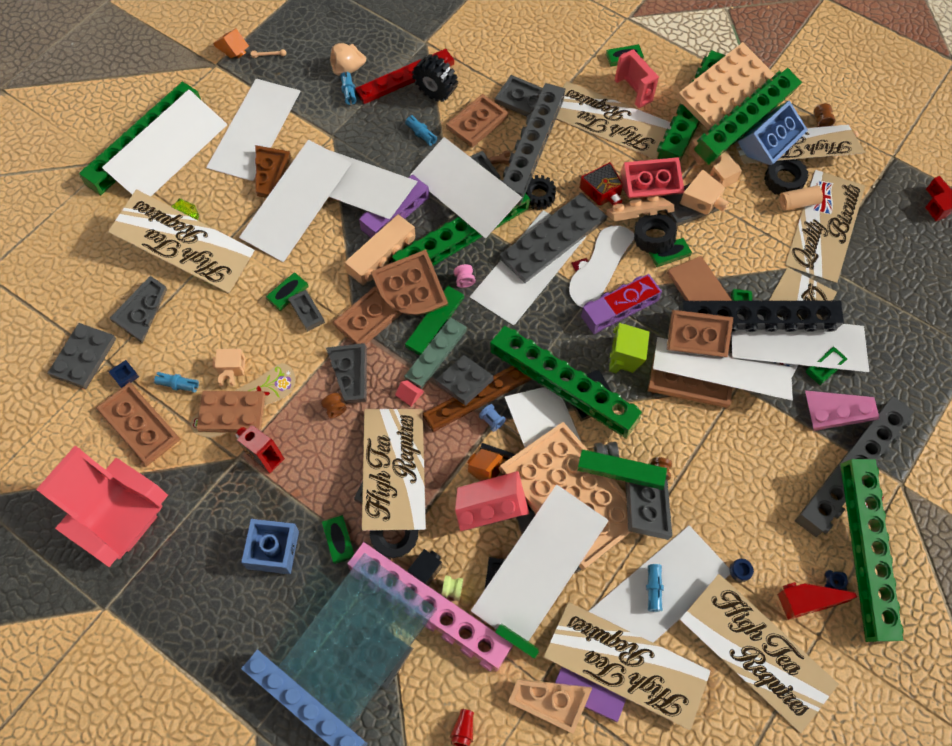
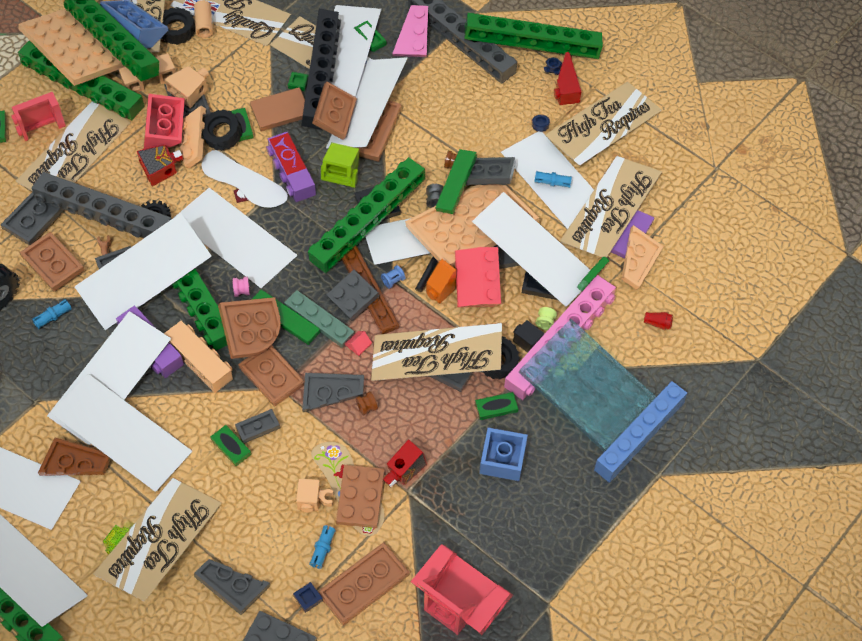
camera: 85 degrees left, 5 degrees down
(553, 237) = (208, 212): dark grey plate -> none

